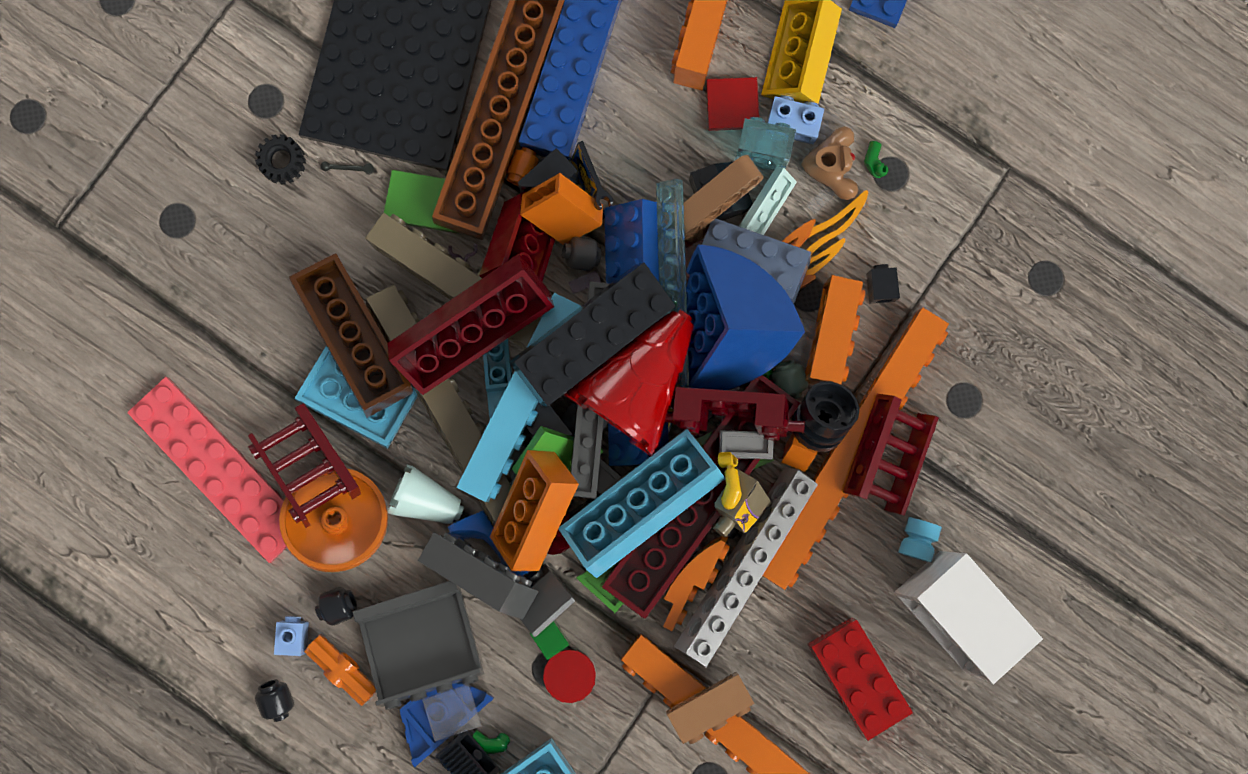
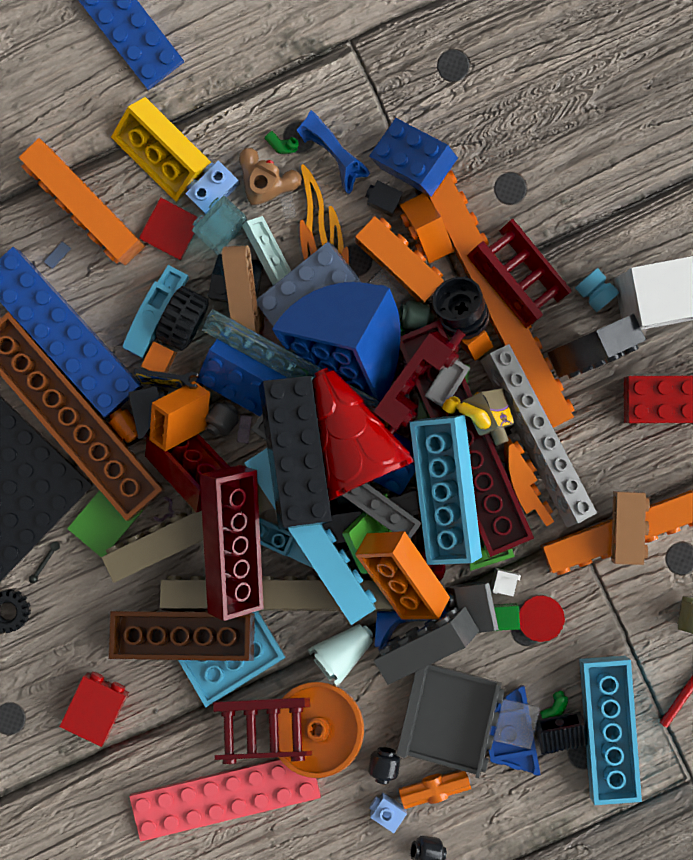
camera: 55 degrees left, 5 degrees up
(232, 294) = (94, 708): none -> red brick
(584, 618) = (504, 582): none -> white panel
(605, 161) = (159, 358): none -> orange brick
(645, 14) = (56, 256): none -> sand blue piece
(645, 131) = (145, 323): none -> medium azure slope
(655, 159) = (182, 318): none -> black tyre
(867, 569) = (597, 347): none -> black brick
(880, 341) = (427, 227): none -> orange brick
(893, 234) = (349, 166): none -> blue animal
(939, 288) = (413, 156): none -> blue brick

